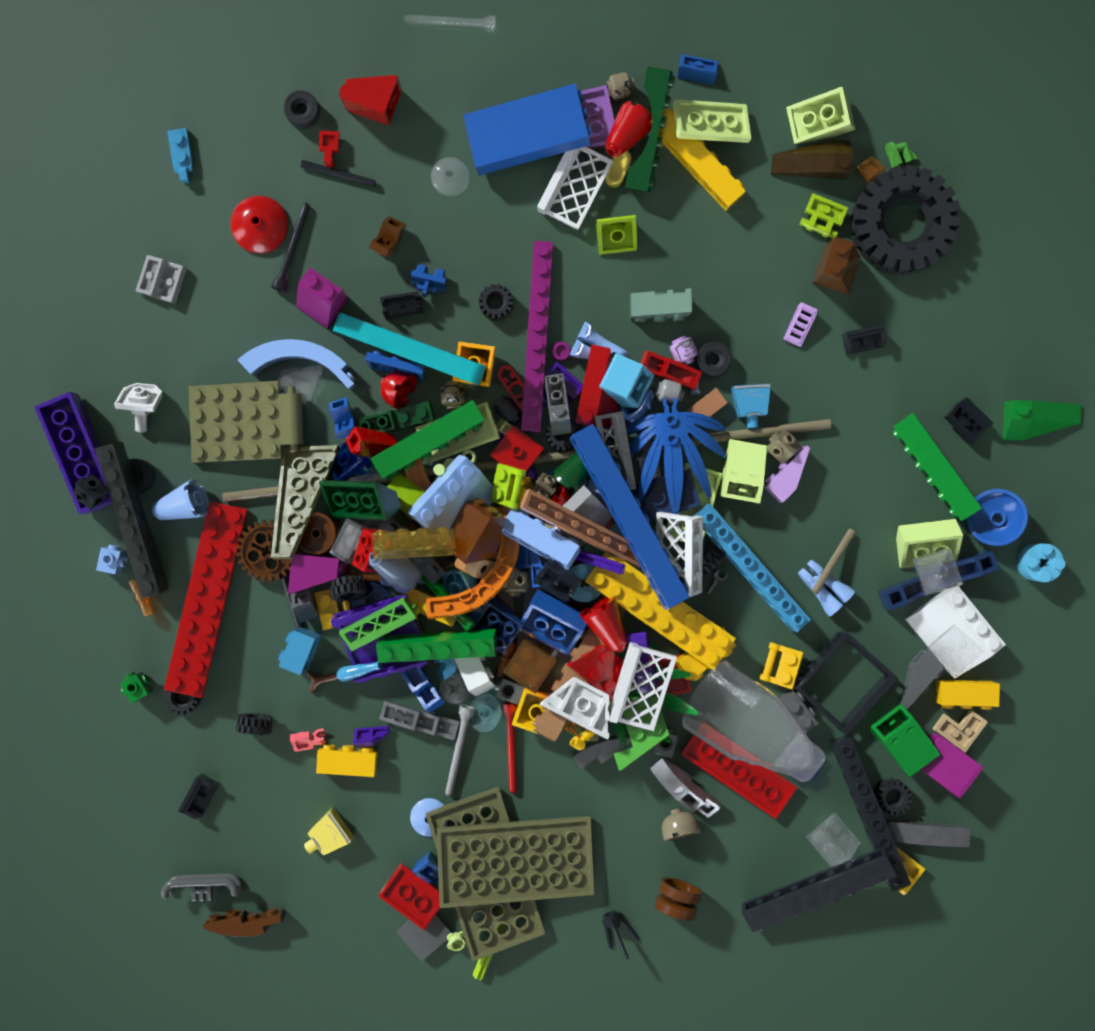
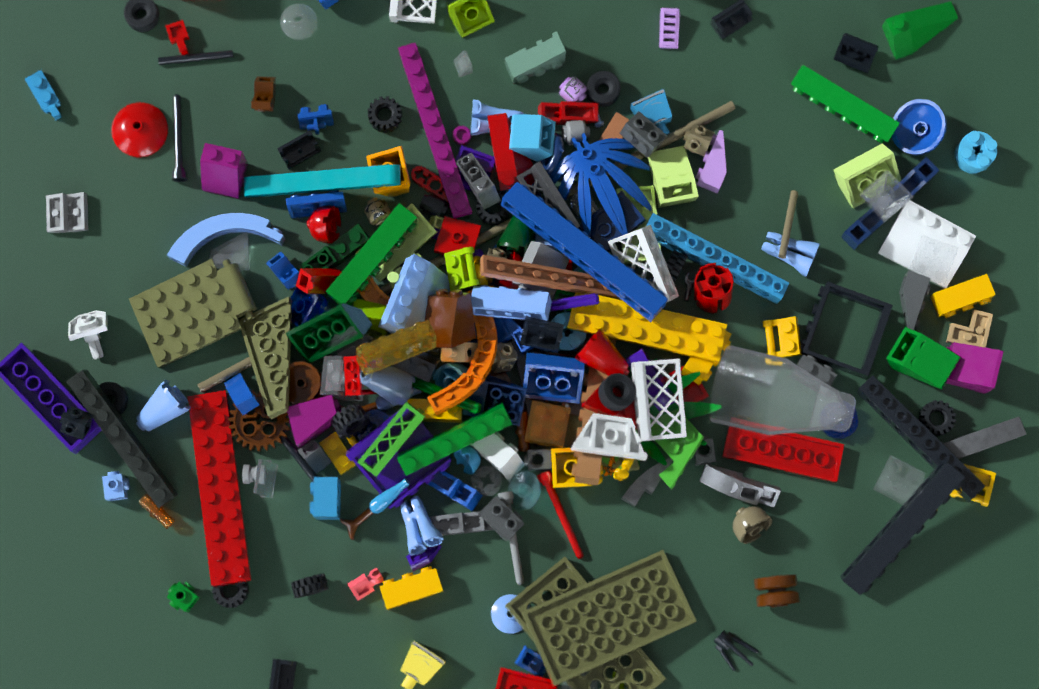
camera: 25 degrees left, 10 degrees down
(242, 598) = (249, 474): none -> light grey wheel
(251, 608) = (265, 478): none -> clear piece
(256, 521) = (241, 394): none -> blue slope
(375, 708) = (430, 534): none -> light blue piece
(453, 733) = (501, 517): none -> dark grey brick
(589, 282) = (463, 64): none -> clear slope
(594, 666) = (621, 382): none -> black tyre
(732, 422) = (644, 137): none -> dark grey brick
(744, 589) = (713, 288): none -> red cylinder

